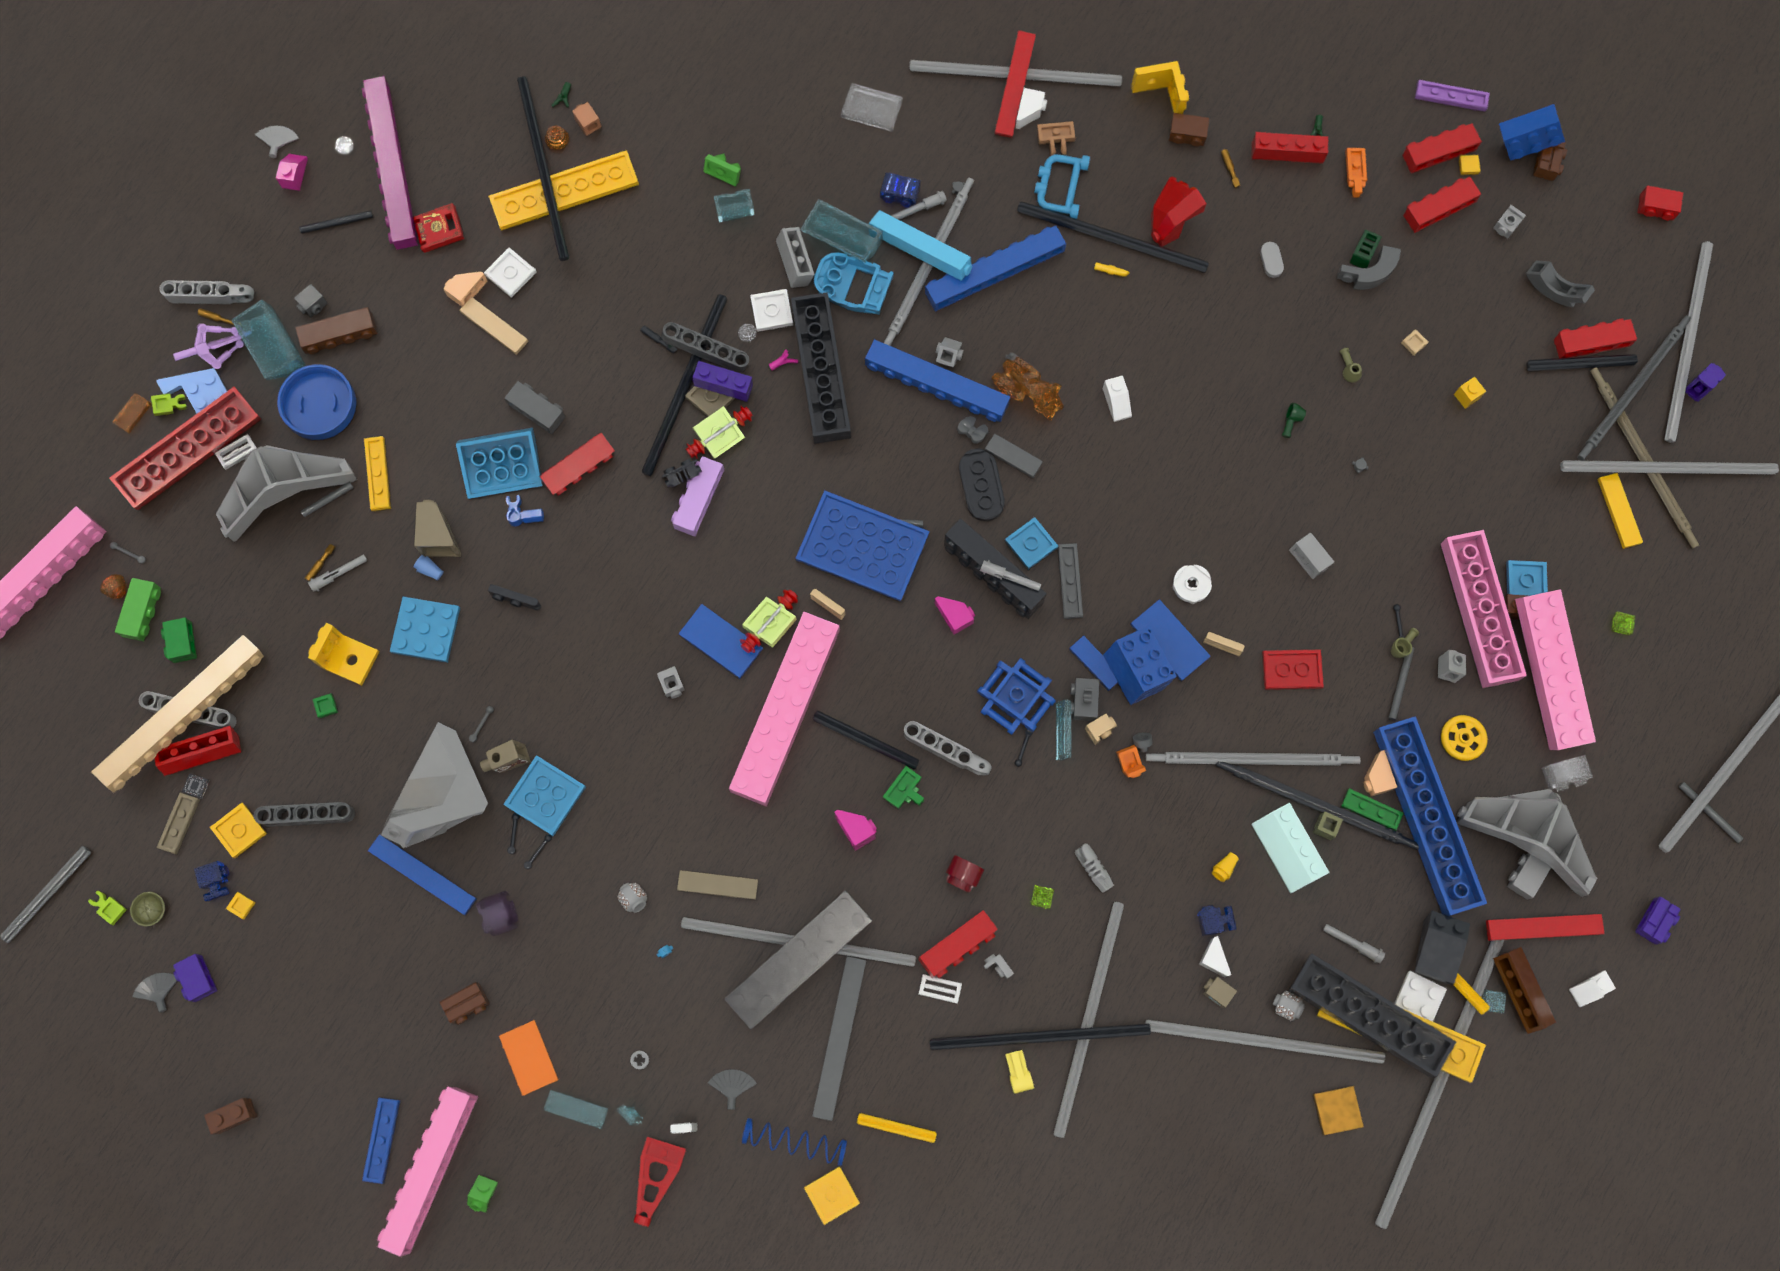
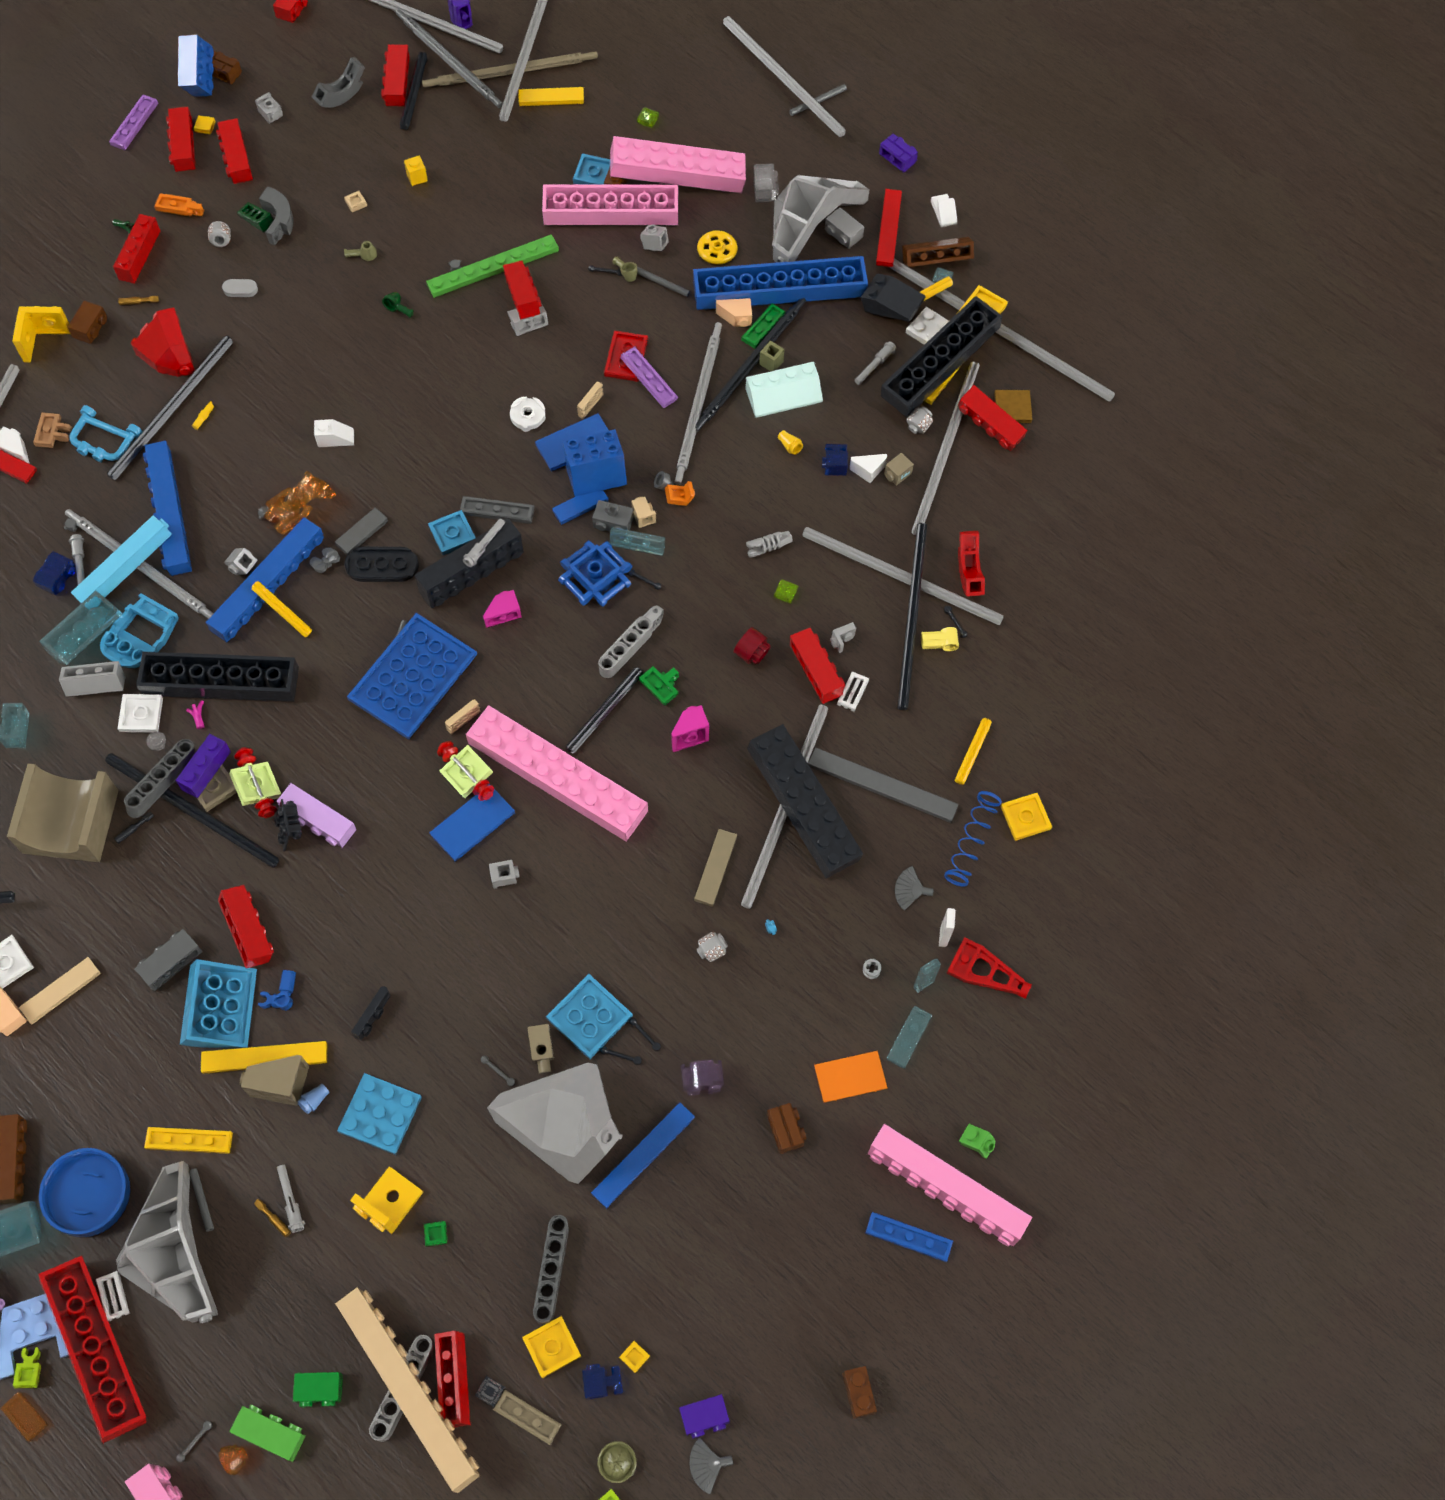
camera: 80 degrees left, 10 degrees down
(461, 516) = (240, 1058): none -> yellow tile
(653, 275) = (62, 815): none -> dark tan piece
(905, 404) = (281, 609): none -> yellow axle
(1034, 1096) = (947, 610): none -> black hinge
(1113, 1091) = (969, 564): none -> red arch
(1269, 699) = (649, 377): none -> medium lavender tile
(1309, 1088) = (991, 418): none -> red brick
(1330, 220) = (219, 234): none -> light grey head
(1340, 540) = (522, 289): none -> red brick
(1371, 504) = (491, 266): none -> bright green plate

